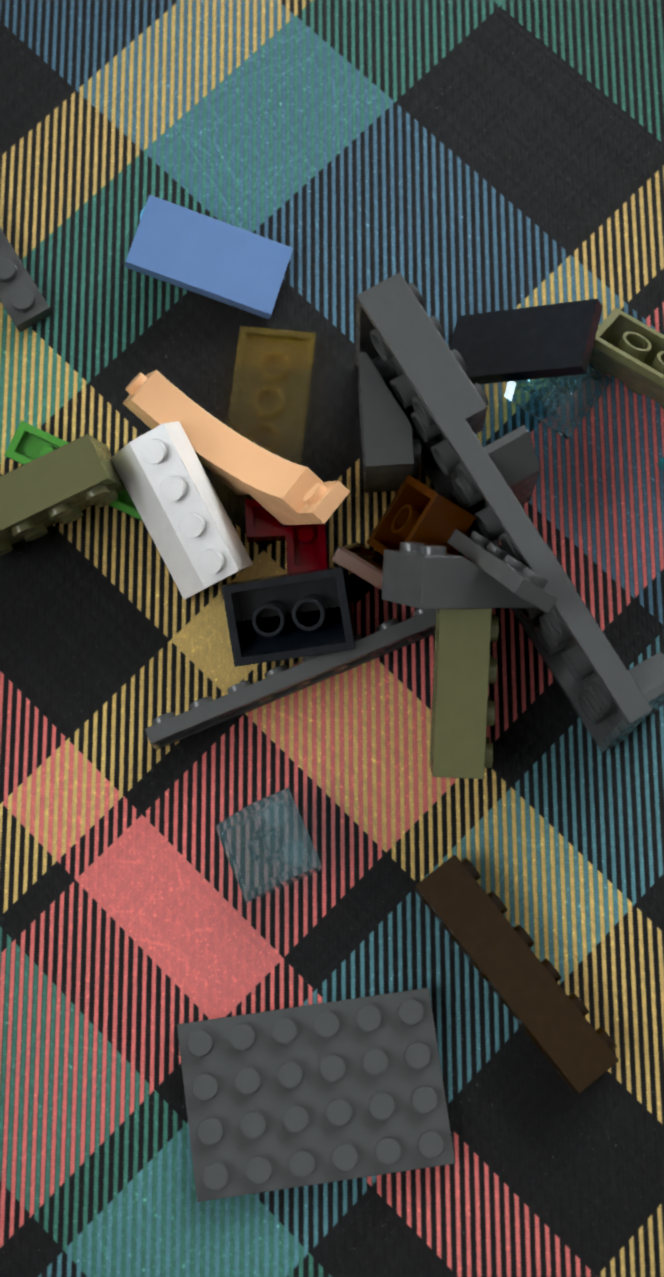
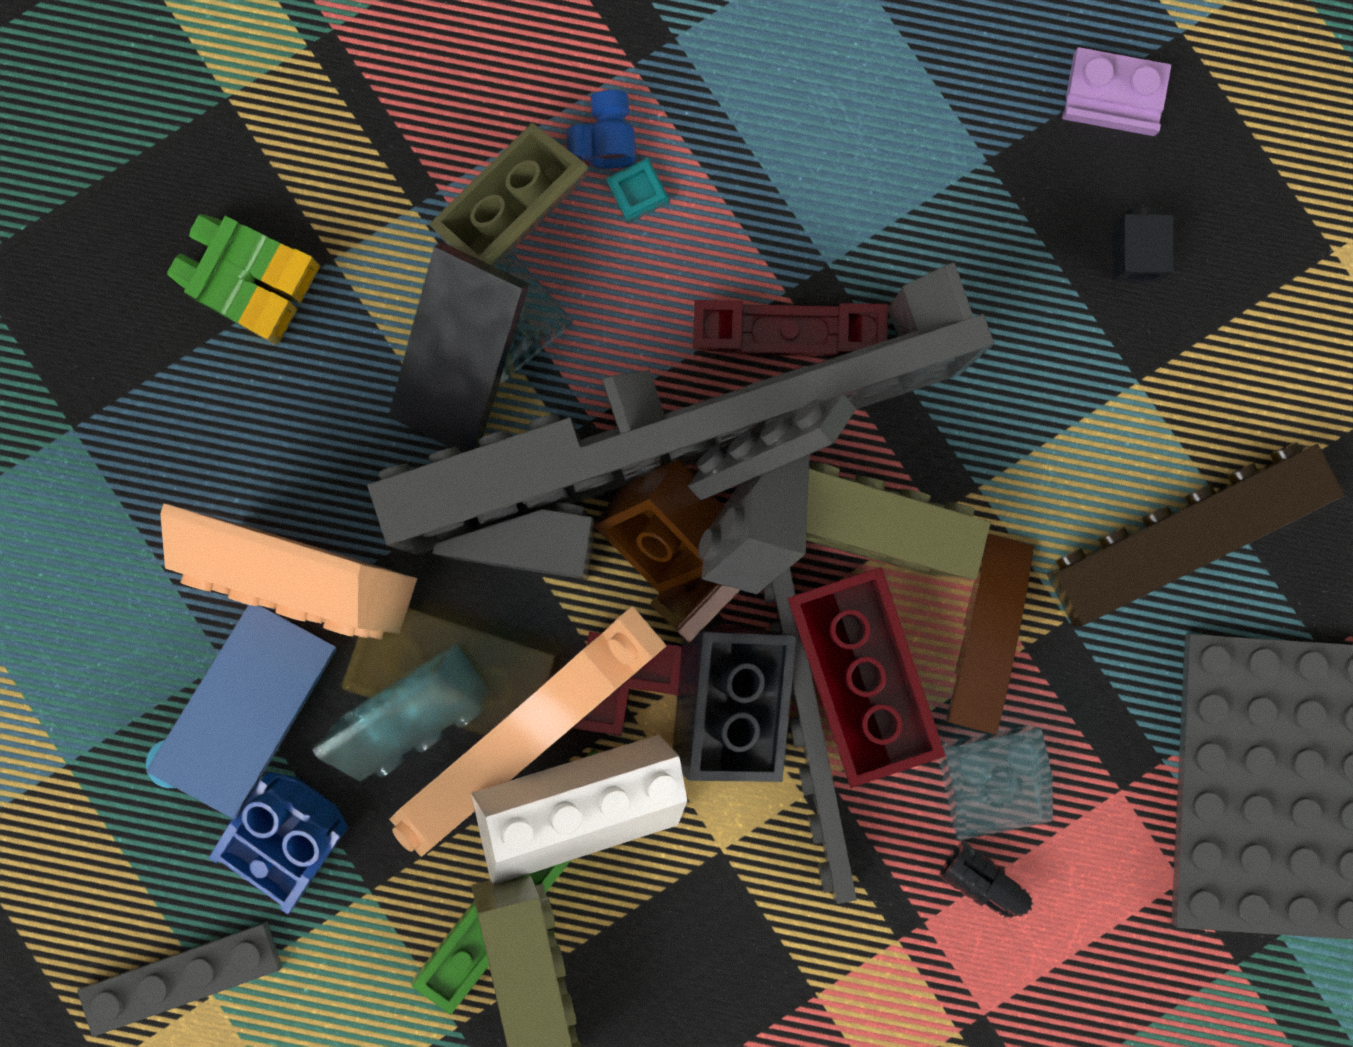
camera: 80 degrees left, 10 degrees up
(118, 305) = (281, 838): none -> blue slope
(184, 851) = (985, 882): none -> black hinge
(227, 367) = (404, 716): none -> clear light blue slope
(318, 253) = (284, 574): none -> light nougat slope
(334, 713) = (866, 677): none -> dark red slope
(391, 814) = (991, 634): none -> reddish brown slope
(544, 178) = (231, 266): none -> bright green hips
(601, 589) = (787, 329): none -> dark red slope

